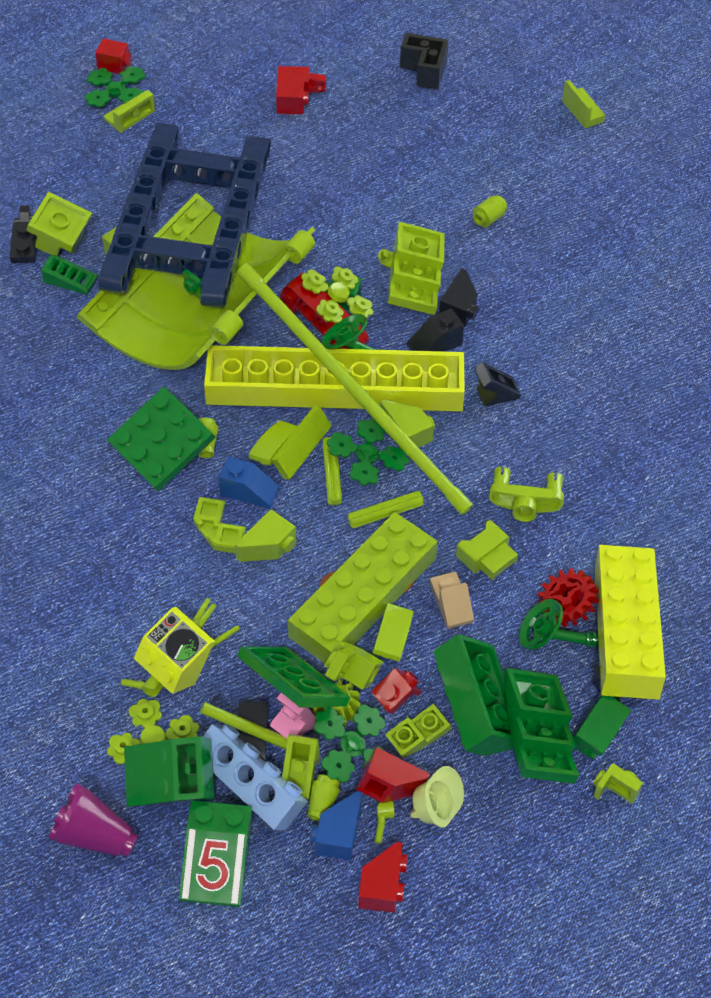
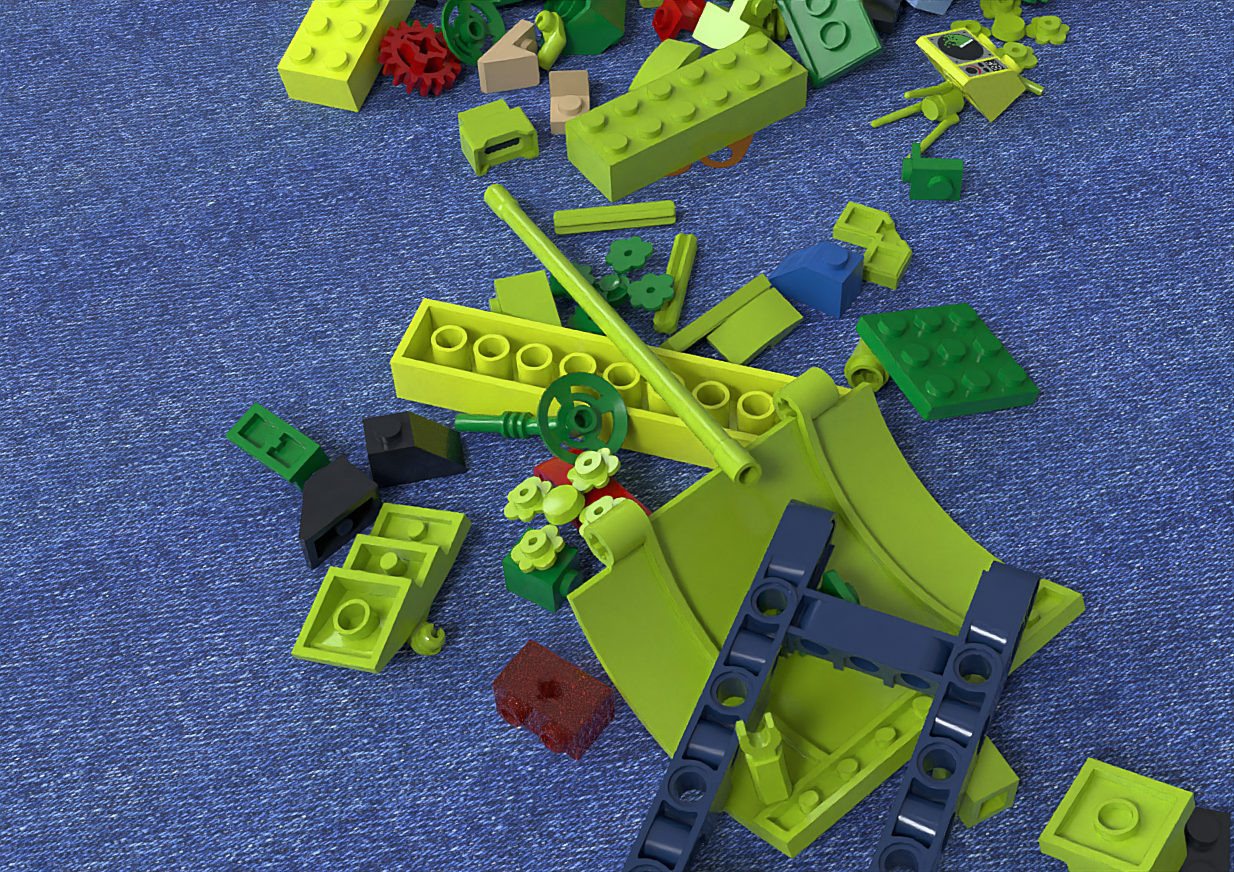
camera: 160 degrees left, 5 degrees down
(53, 271) = (1120, 735): green slope -> none
(189, 571) = (932, 176): none -> green bracket
(211, 210) = (766, 761): none -> lime bar
(266, 539) = (806, 198): lime slope -> none
(327, 237) = (553, 700): none -> clear red brick
(484, 633) = (554, 36): none -> lime arm
(489, 211) = (172, 690): lime brick -> none
(495, 385) = (357, 346): black slope -> none
(503, 321) = (277, 445): none -> green hinge
(504, 613) = (511, 61): none -> tan slope
(526, 500) = (403, 182): lime connector -> none

